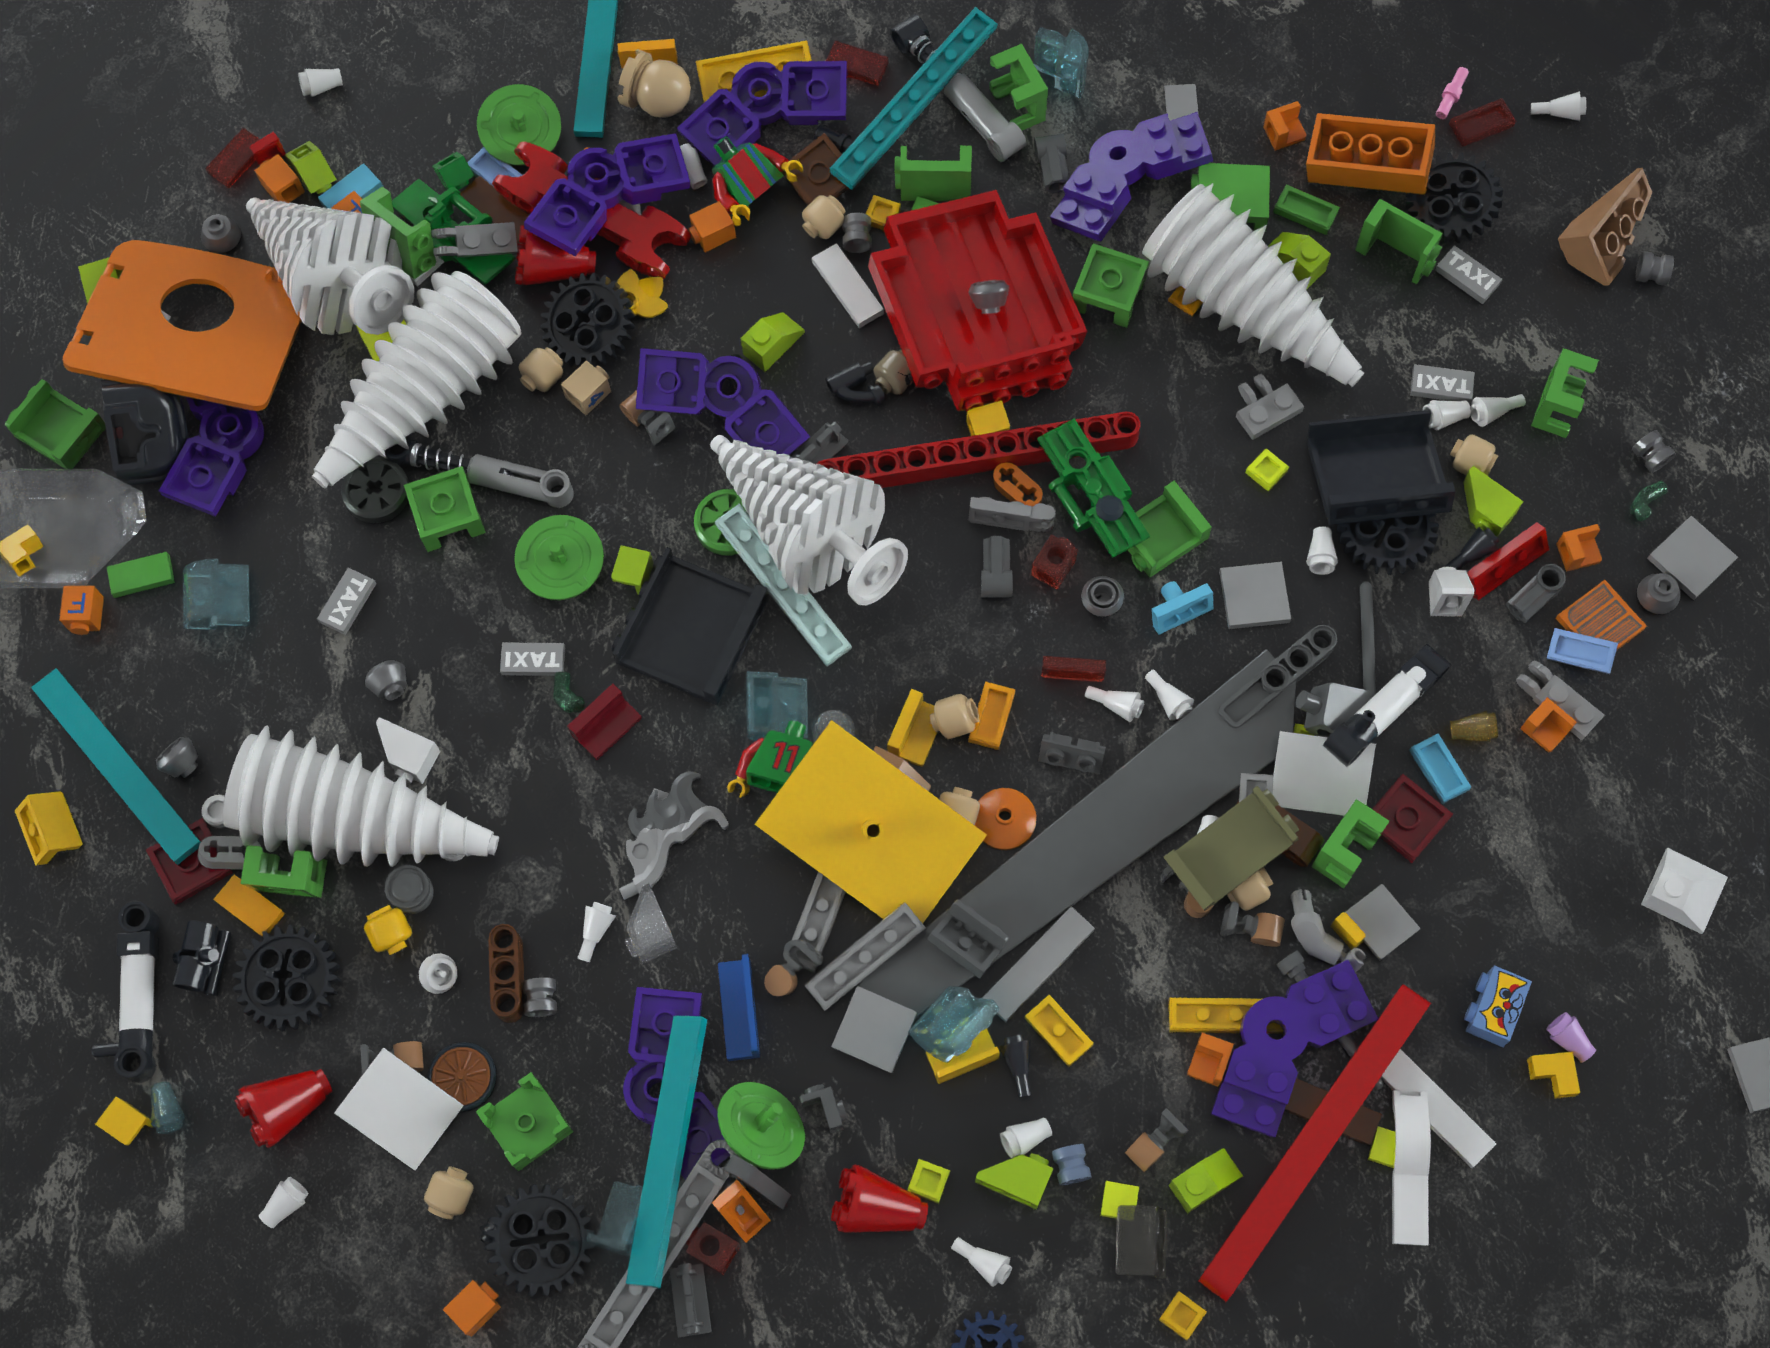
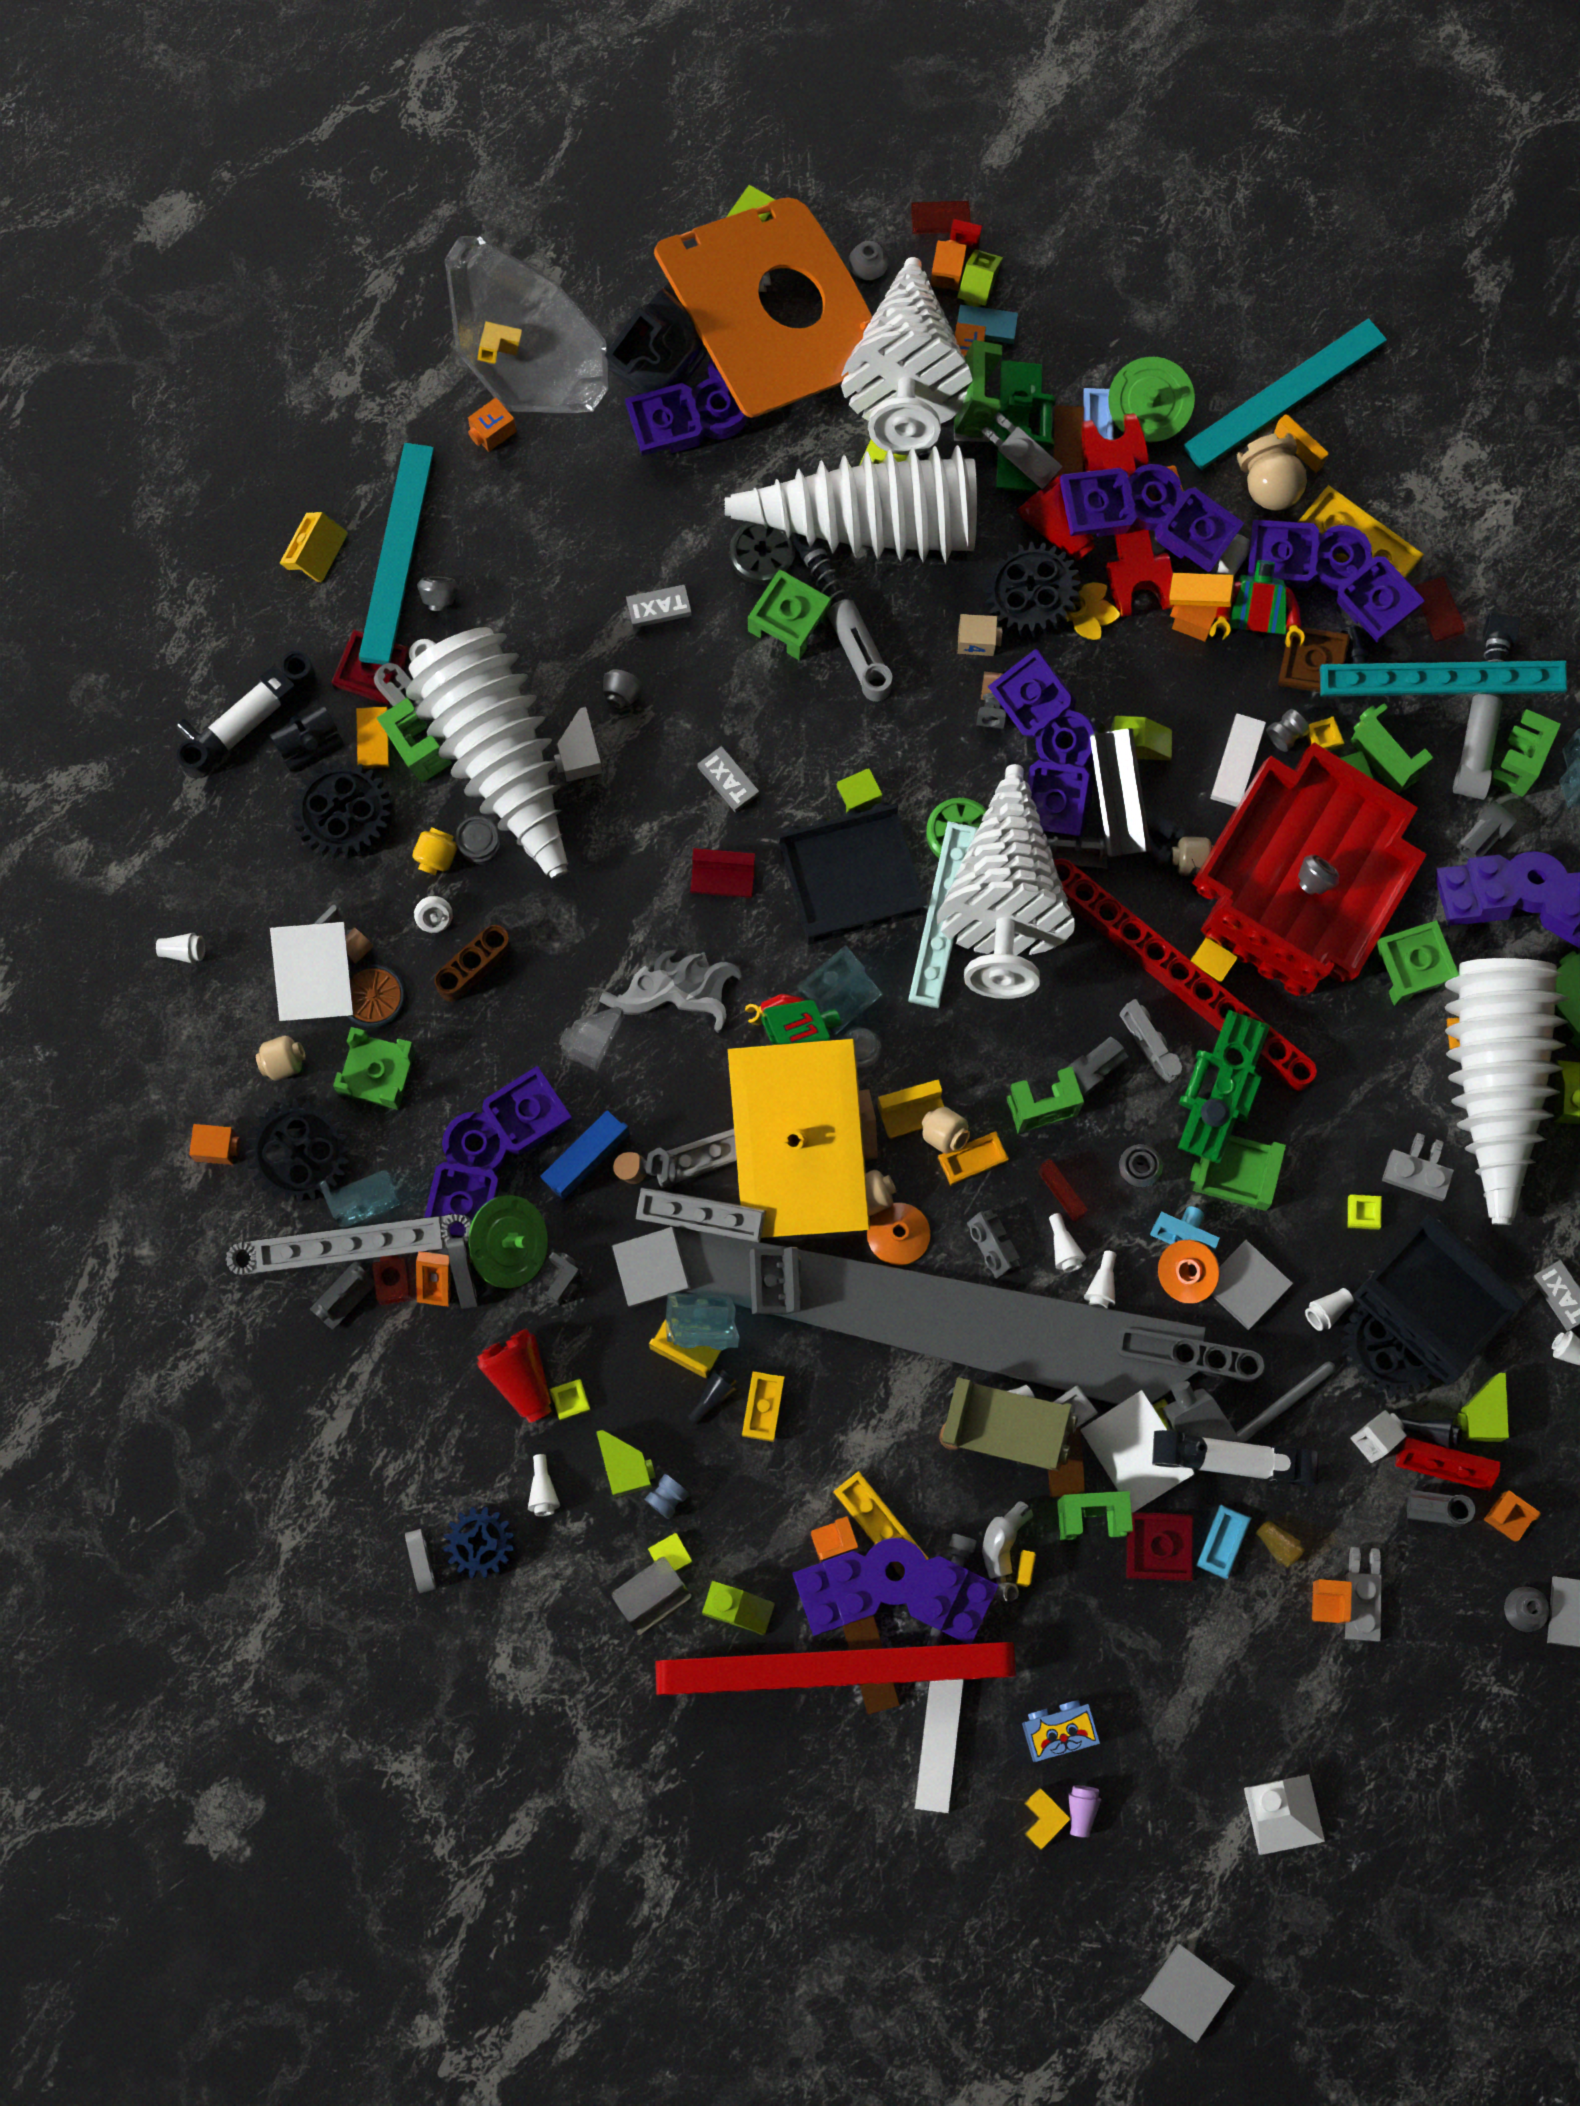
camera: 45 degrees right, 5 degrees up
(55, 425) = (614, 279): bright green panel -> none
(122, 1121) = (148, 787): yellow panel -> none
(140, 574) = (554, 442): bright green tile -> none
(165, 1109) = (180, 808): clear light blue cone -> none
(215, 595) = (582, 509): clear light blue brick -> none
(281, 1104) = (248, 885): red cone -> none
(319, 80) = (1057, 221): white cone -> none
(453, 171) = (1069, 385): green plate -> none
(539, 997) = (474, 1002): flat silver wheel -> none
(541, 369) = (963, 589): tan head -> none
(559, 557) = (822, 730): bright green piece -> none
(564, 696) = (718, 826): clear green arm -> none
(595, 925) = (564, 996): white cone -> none
(666, 1152) = (432, 1187): teal tile -> none
(699, 201) = (1201, 589): none -> light orange tile
(803, 380) = (1120, 792): none -> dark grey panel
(823, 216) = (1277, 693): tan head -> none
(989, 643) = (1049, 1110): none -> bright green panel
(1021, 481) = (1186, 1029): orange beam -> none
(1025, 1136) = (661, 1445): white cone -> none
(1039, 963) = (803, 1350): light grey tile -> none
(1053, 573) = (1130, 1115): clear red brick -> none
(1149, 1148) = (727, 1545): leg -> none
(1182, 1315) = (621, 1670): yellow tile -> none
(1219, 640) = (1175, 1275): none -> orange dish
(1252, 891) = (995, 1469): tan head -> none
(1263, 928) = (972, 1500): leg -> none
(1382, 921) = (1055, 1589): light grey piece -> none
(1383, 1147) = (877, 1731): neon yellow tile -> none
(1411, 1169) = (873, 1759): white piece -> none
(1447, 412) = (1538, 1317): white cone -> none
(1473, 452) = (1520, 1368): tan head -> none
(1582, 651) = (1420, 1582): light blue tile -> none
(1603, 616) = (1461, 1579): tile -> none

